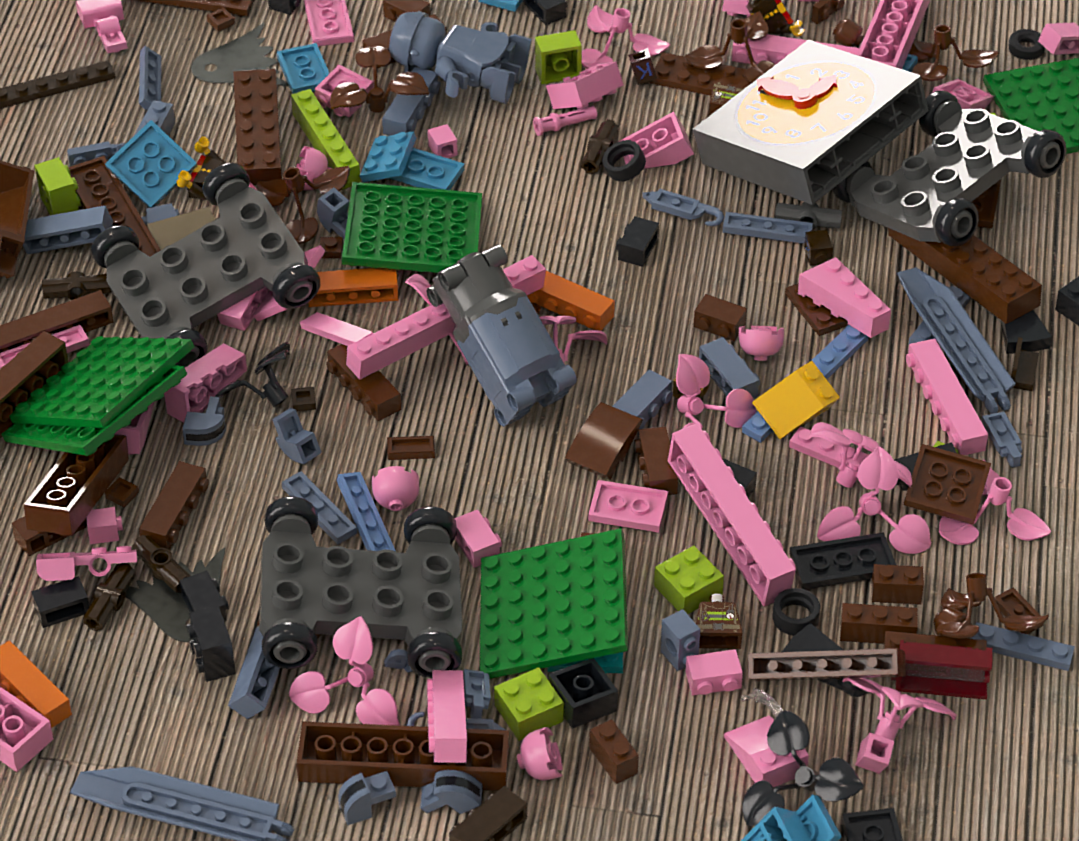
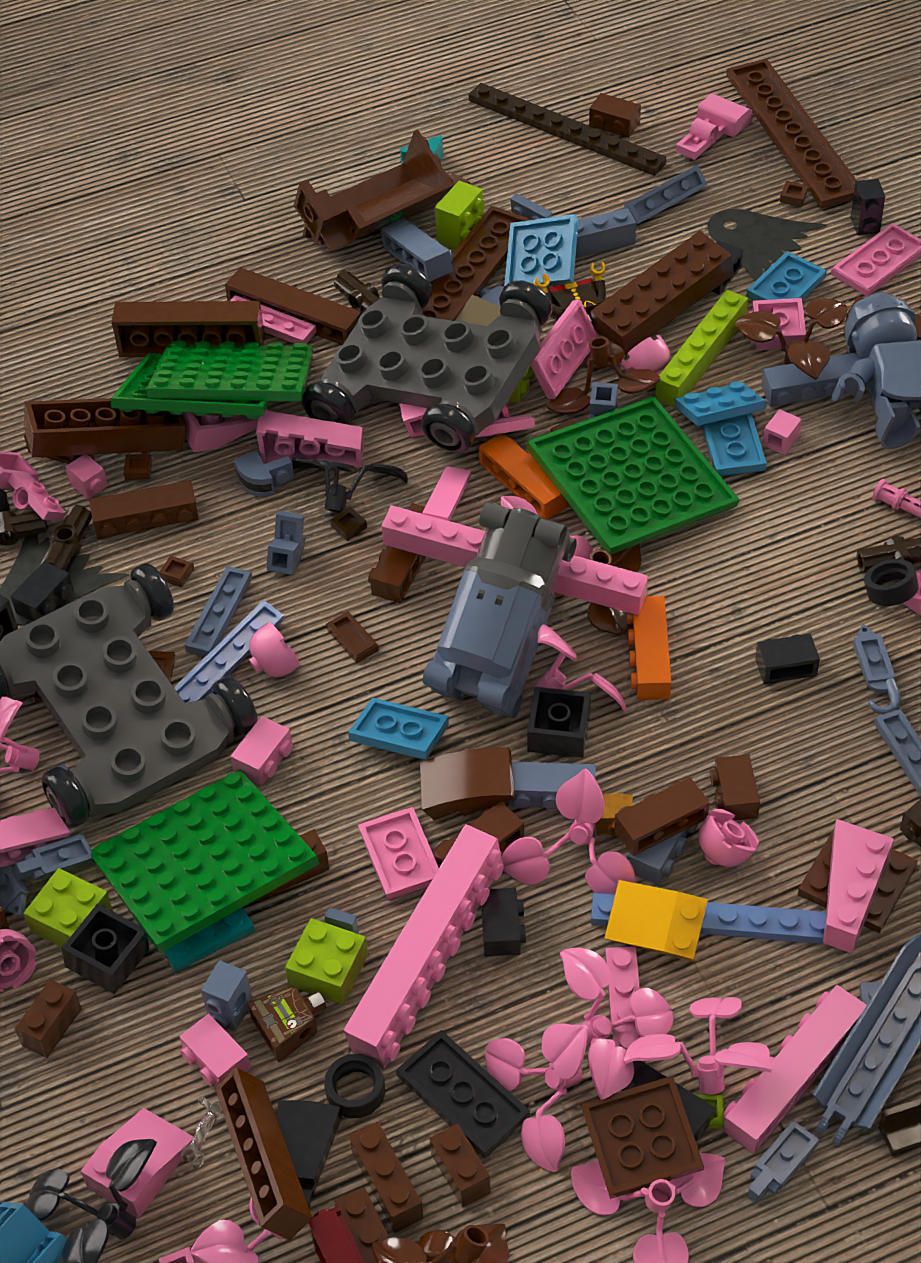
camera: 60 degrees right, 5 degrees up
(33, 62) = (614, 115): none -> reddish brown brick
(250, 517) = (177, 571): none -> reddish brown tile
(524, 455) = (398, 728): none -> dark azure plate
(597, 371) = (558, 722): none -> black brick
(661, 556) = (342, 920): none -> sand blue tile
(724, 353) = (661, 816): none -> reddish brown brick
(898, 440) = (710, 1068): none -> bright pink plant

